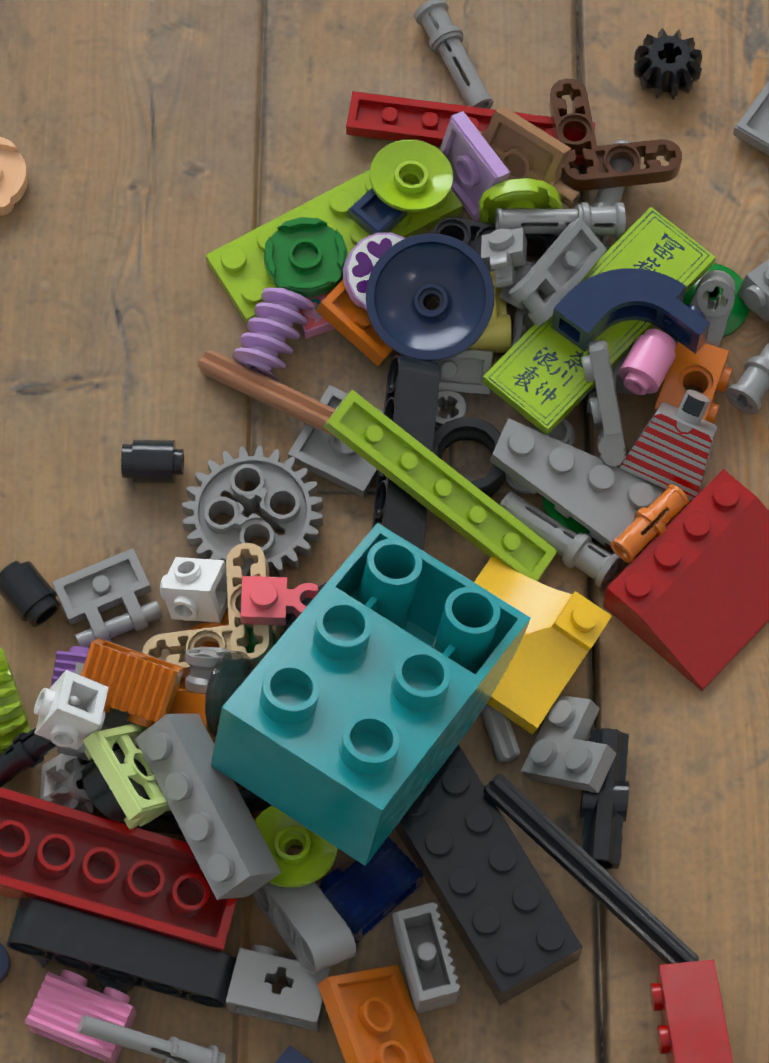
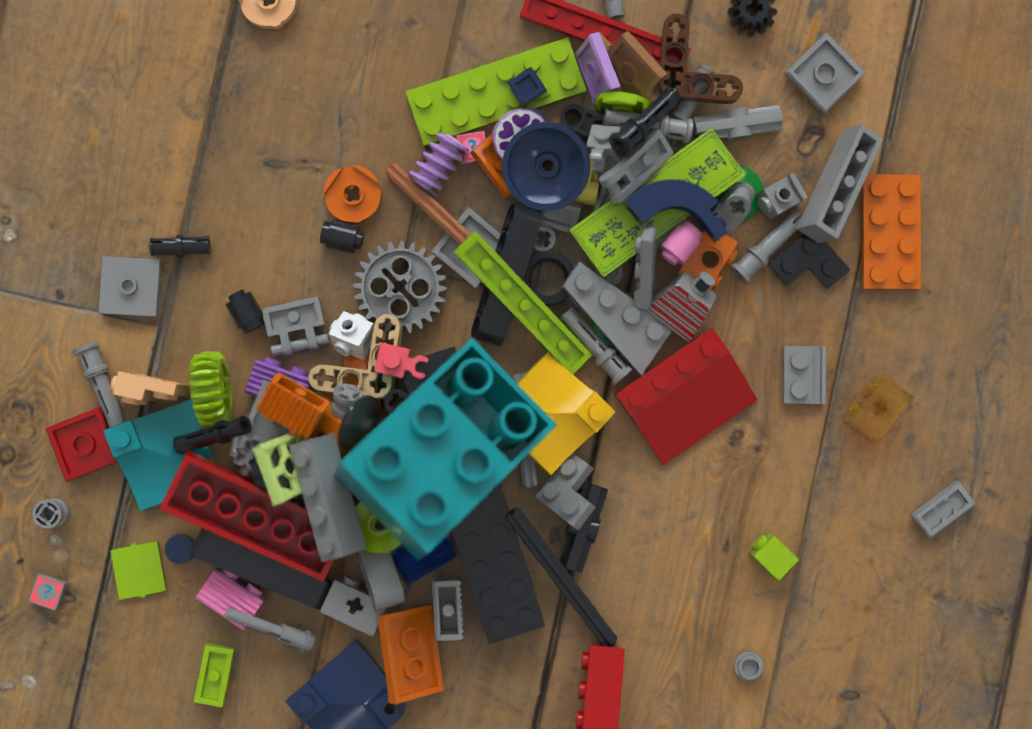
camera: 10 degrees right, 20 degrees up
(70, 710) = (257, 426): white brick -> none
(148, 383) = (350, 178): none -> orange plate
(305, 257) = (471, 111): green tile -> none
(416, 163) = (554, 54): lime dish -> none
(578, 186) = (637, 128): none -> black pin
(649, 523) = (655, 355): orange pin -> none
(694, 204) = (740, 123): none -> light grey piece

